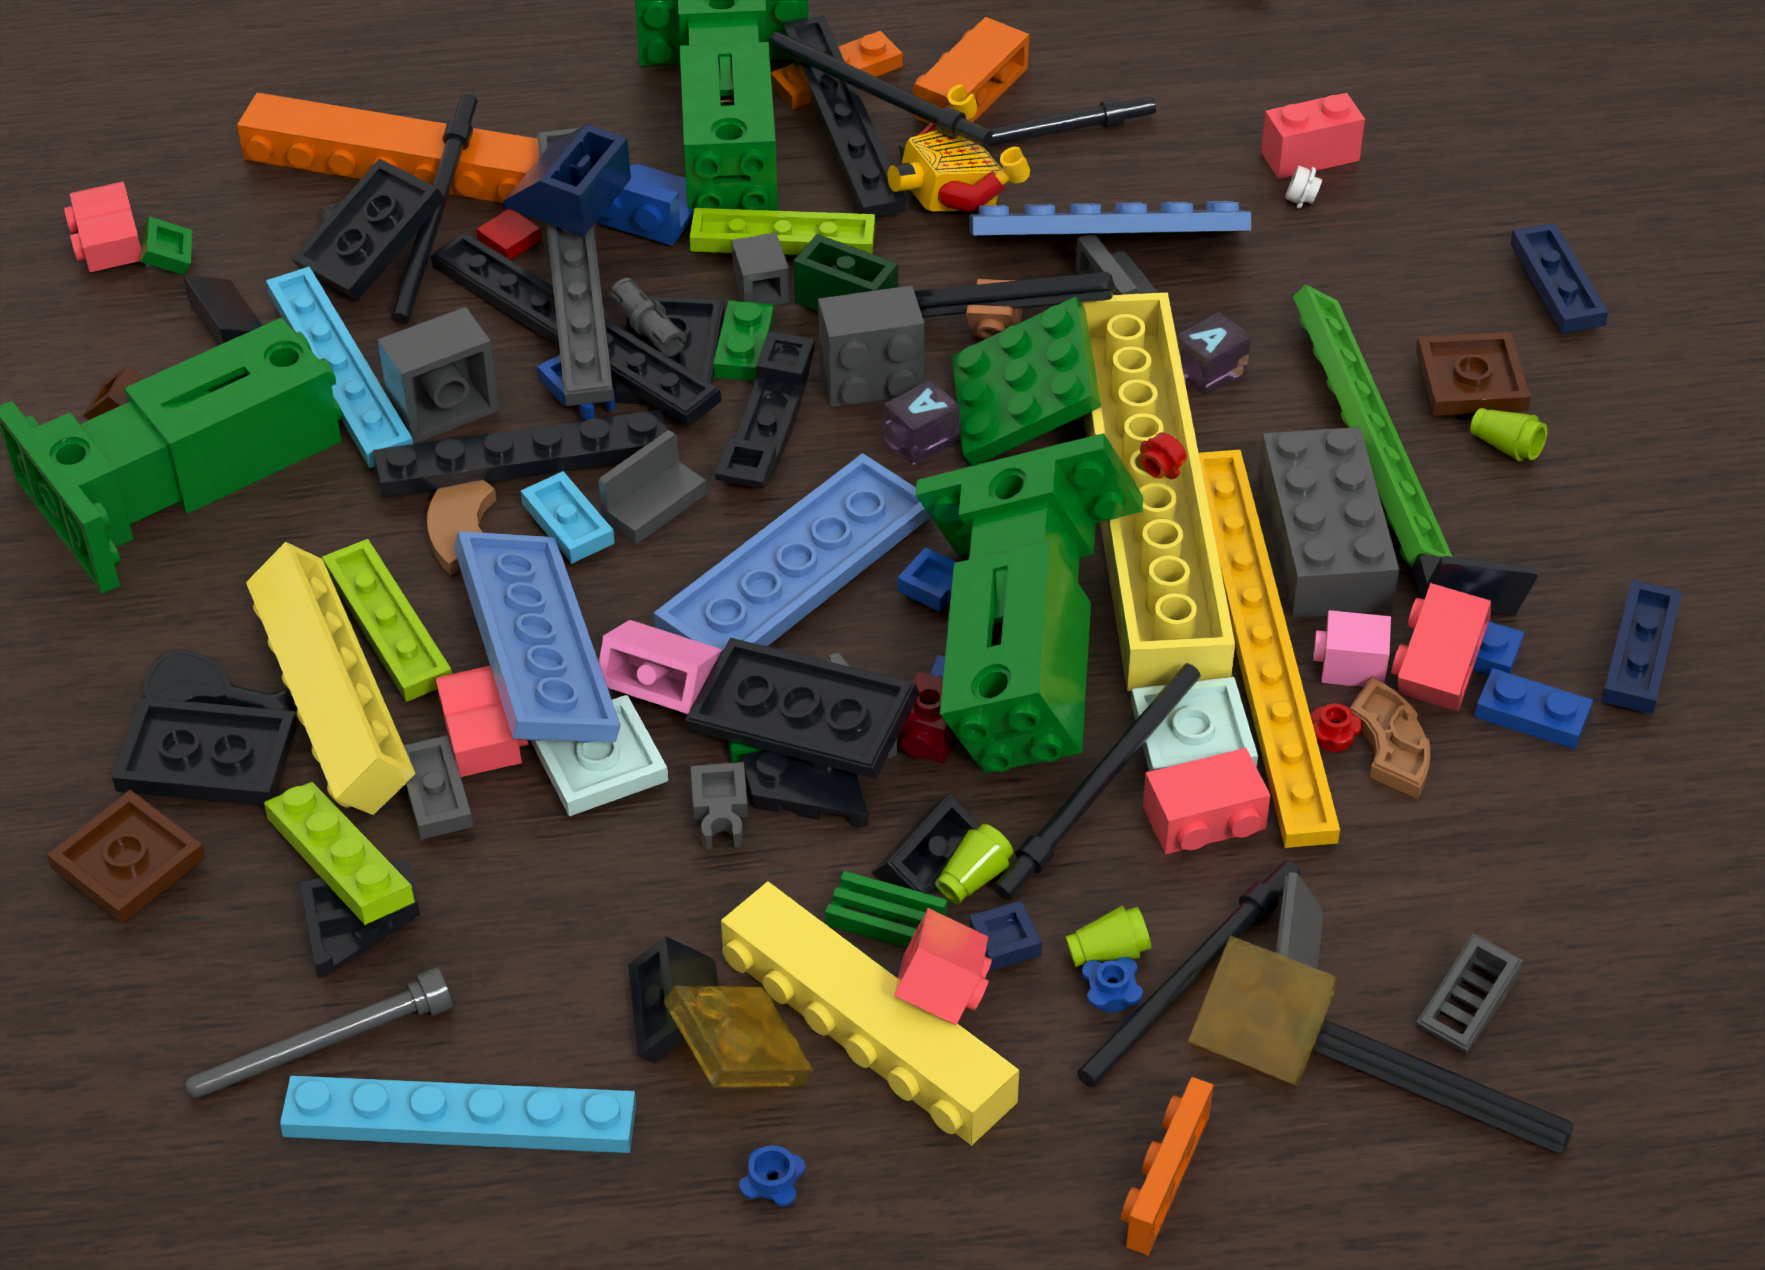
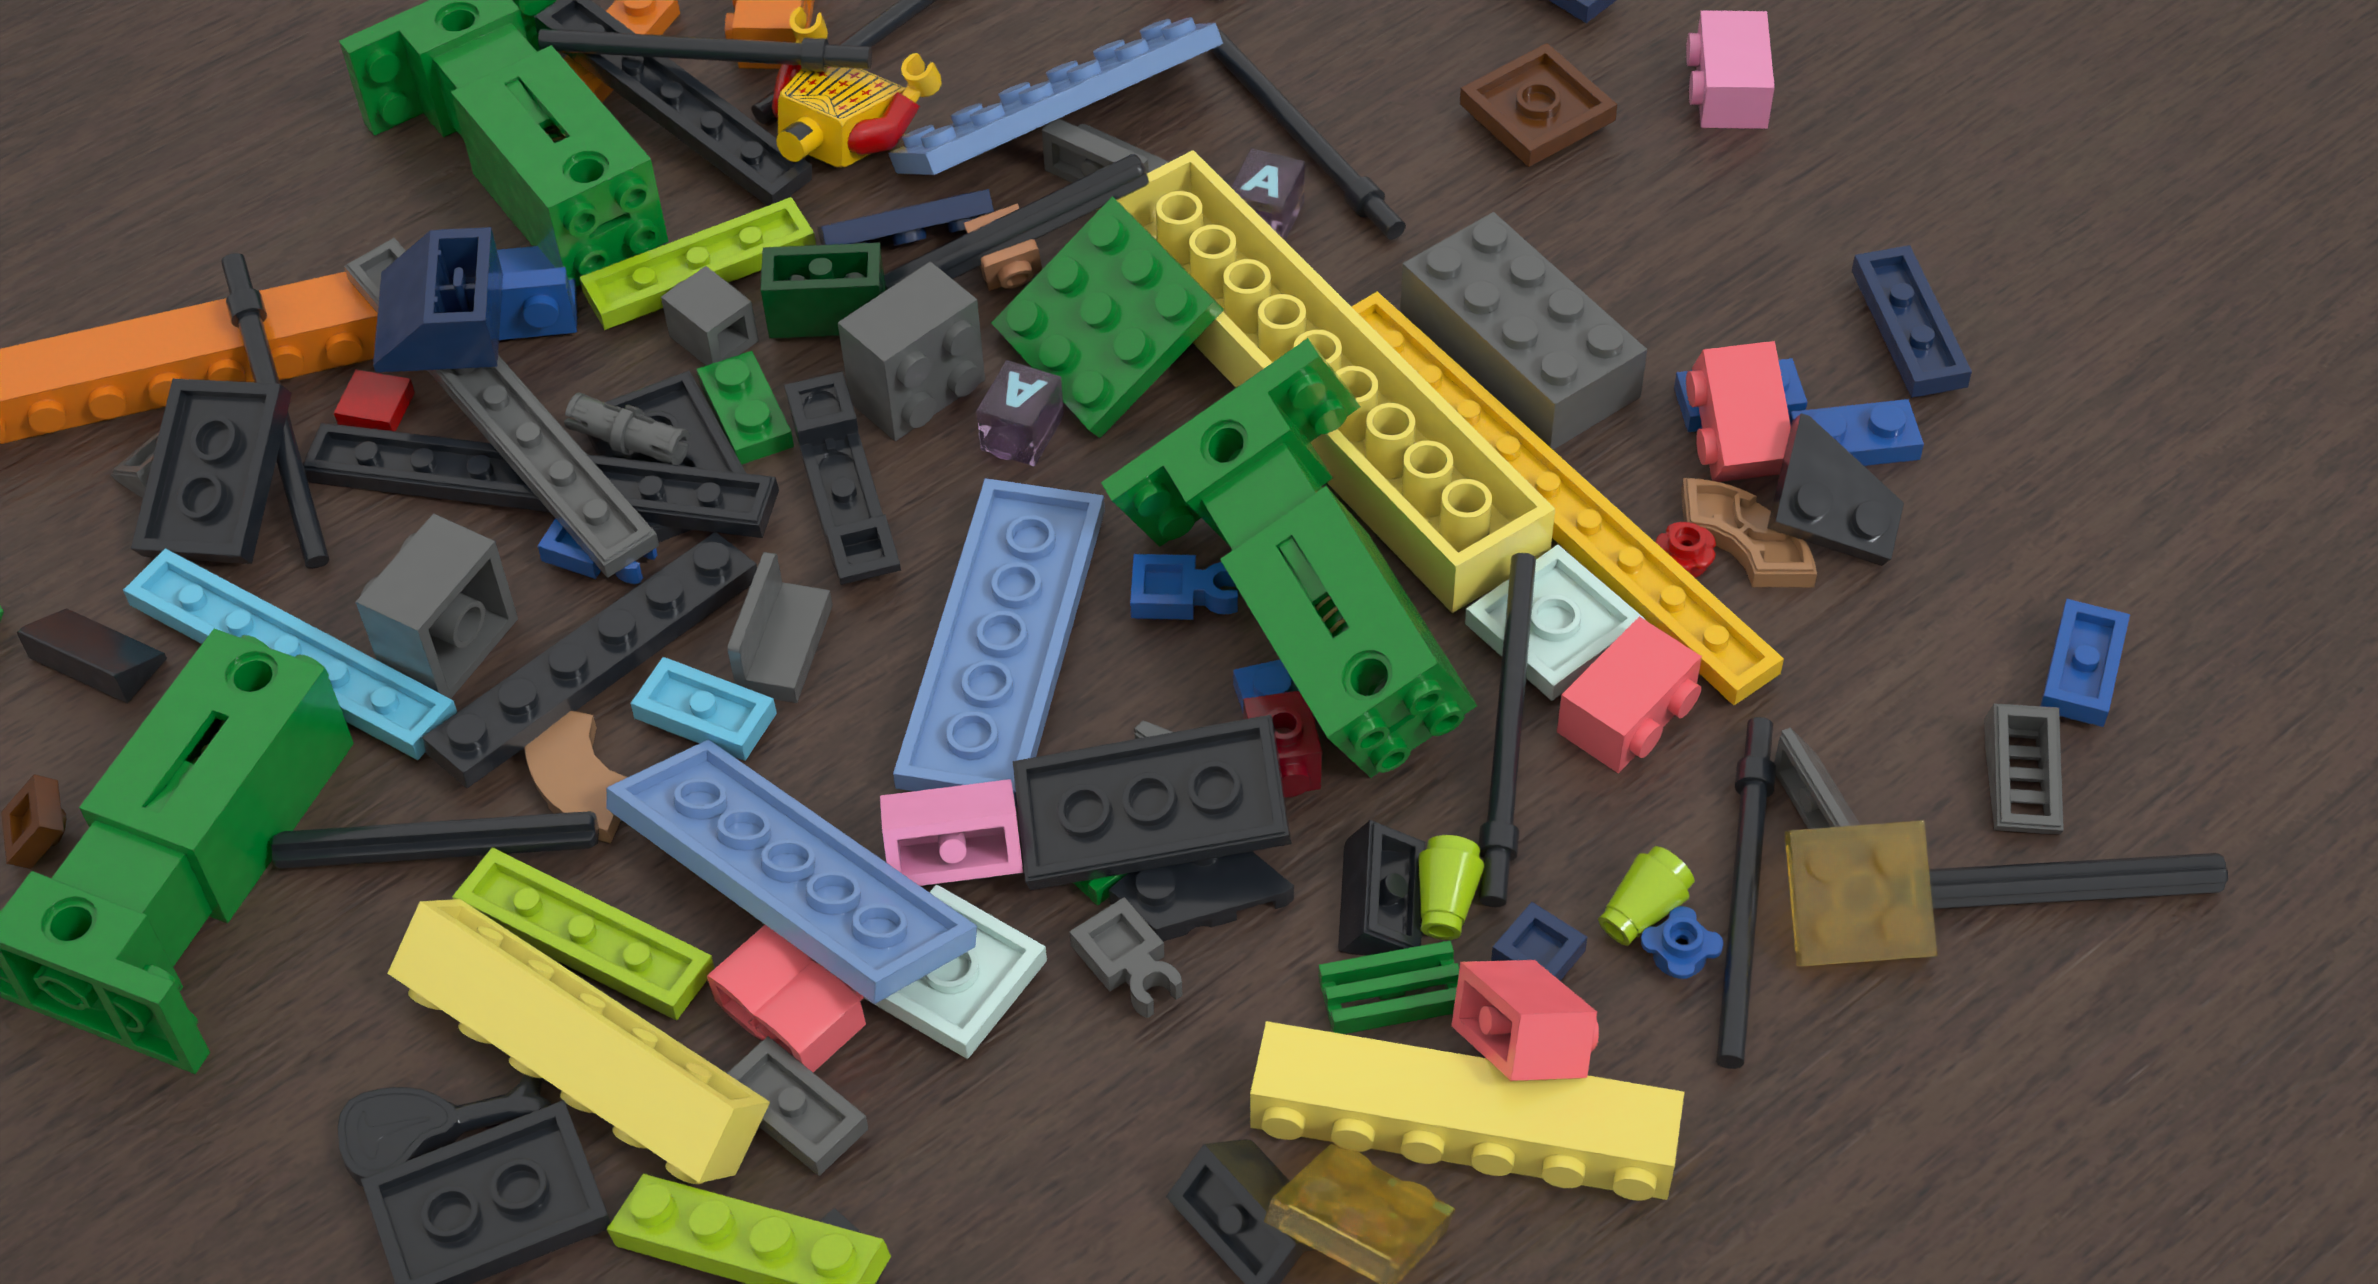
camera: 30 degrees left, 5 degrees up
(341, 520) = (435, 839): none -> black axle
(942, 264) = (909, 222): none -> dark blue plate
(1162, 456) = (1337, 334): red plate -> none
(1166, 1165) = (1889, 1113): orange plate -> none
(1288, 379) = (1359, 191): none -> black bar
(1353, 648) = (1649, 455): bright pink brick -> none
(1363, 407) = (1472, 198): bright green plate -> none
(1467, 738) = (1833, 497): none -> black wing
(1499, 582) = (1714, 323): black panel -> none
(1510, 432) = (1620, 151): lime cone -> none
(1578, 943) = (2085, 662): none -> blue plate
(1644, 410) = (1732, 69): none -> bright pink brick

